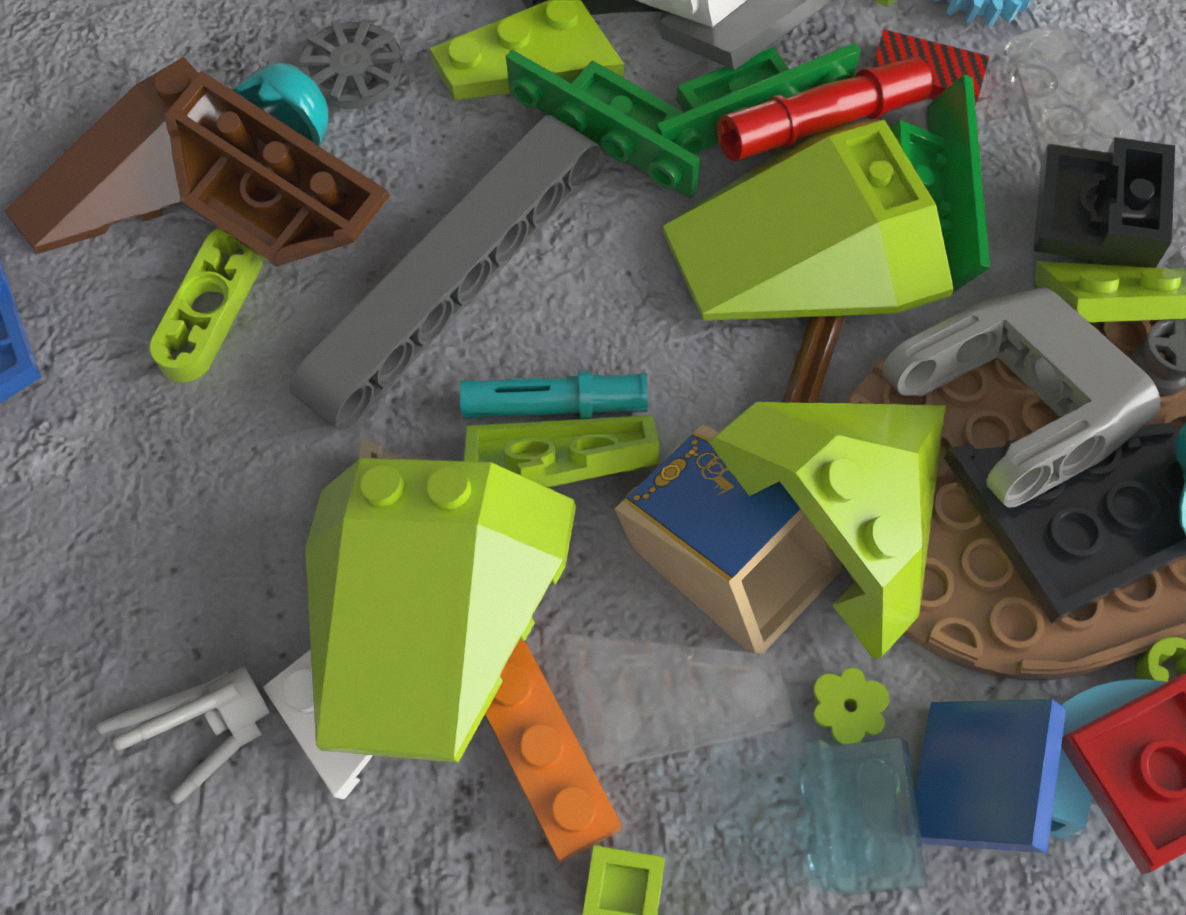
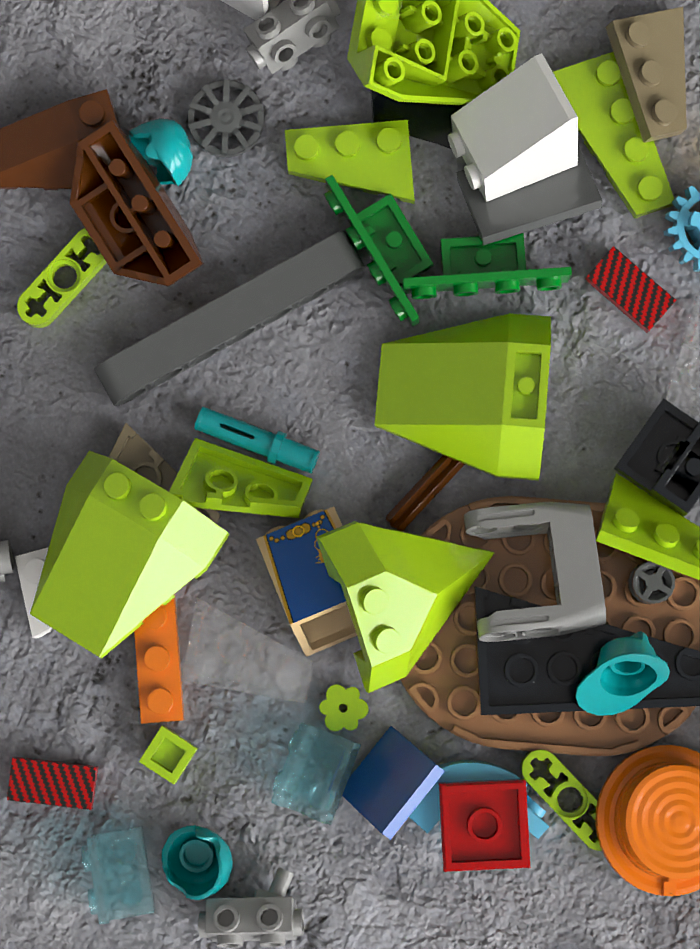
camera: 25 degrees right, 20 degrees up
(823, 108) = (527, 306): red piece -> none
(951, 171) = (580, 386): green bracket -> none

